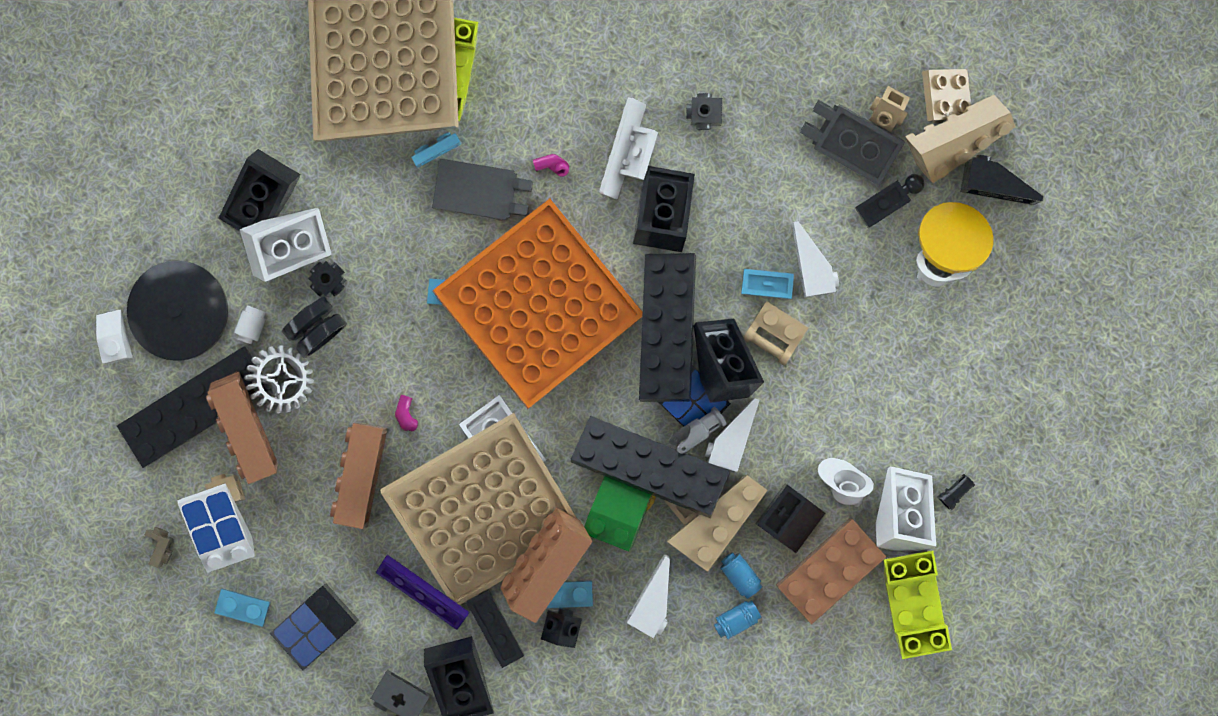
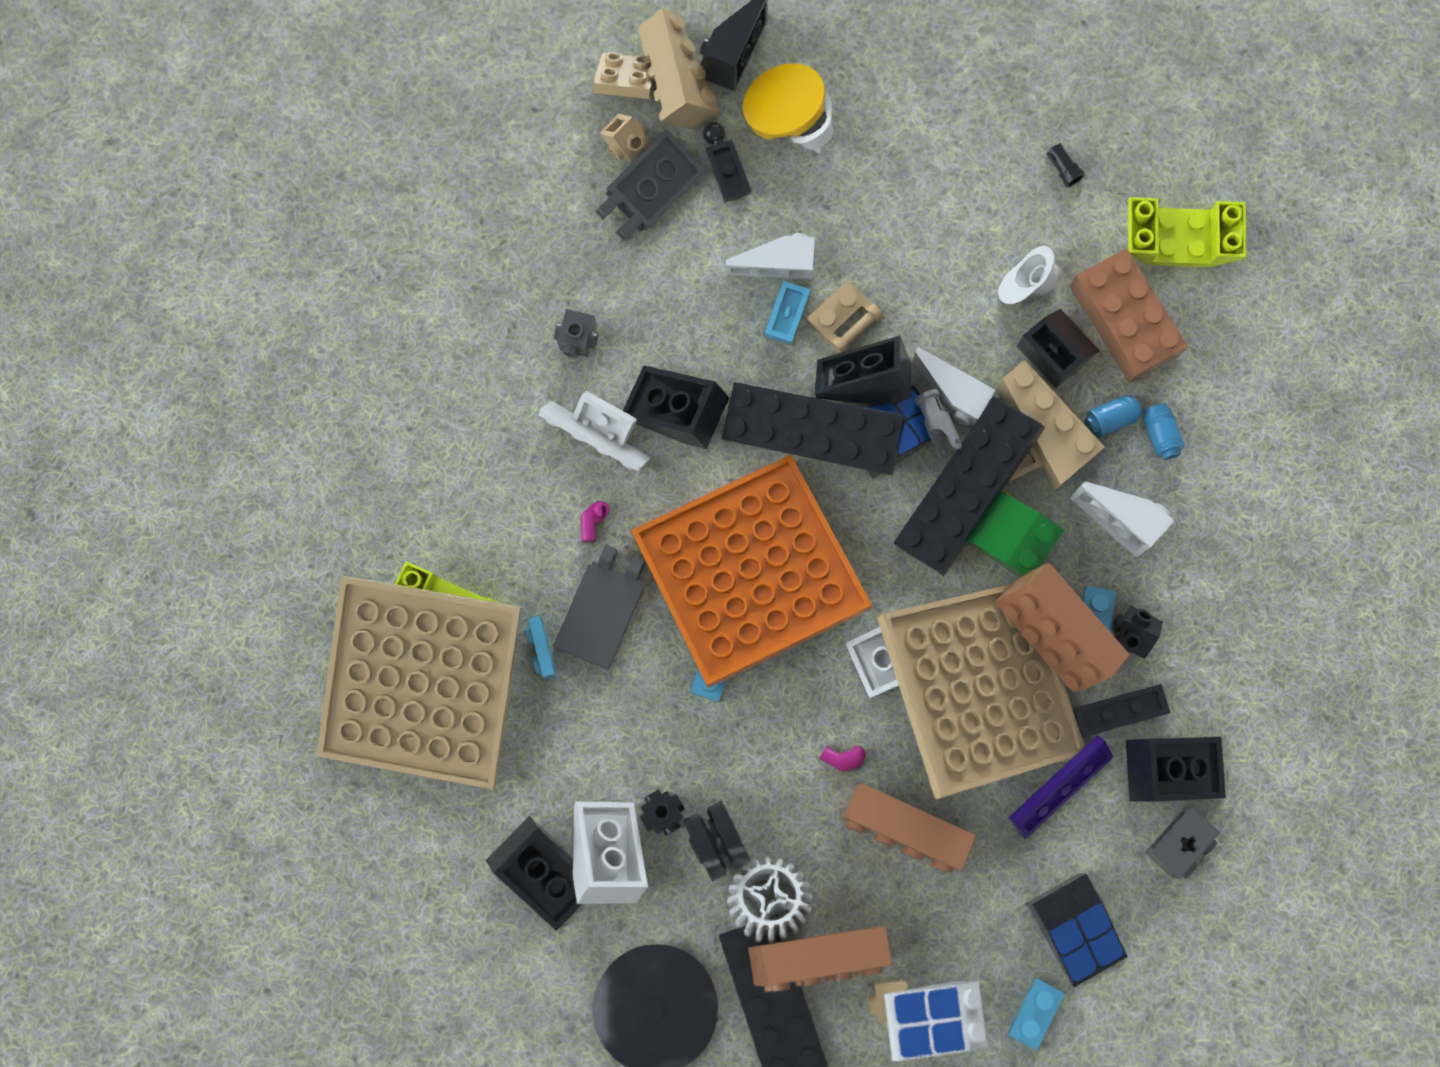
camera: 75 degrees left, 10 degrees down
(250, 324) = (694, 920): white brick -> none
(906, 512) = (1080, 218): white slope -> none

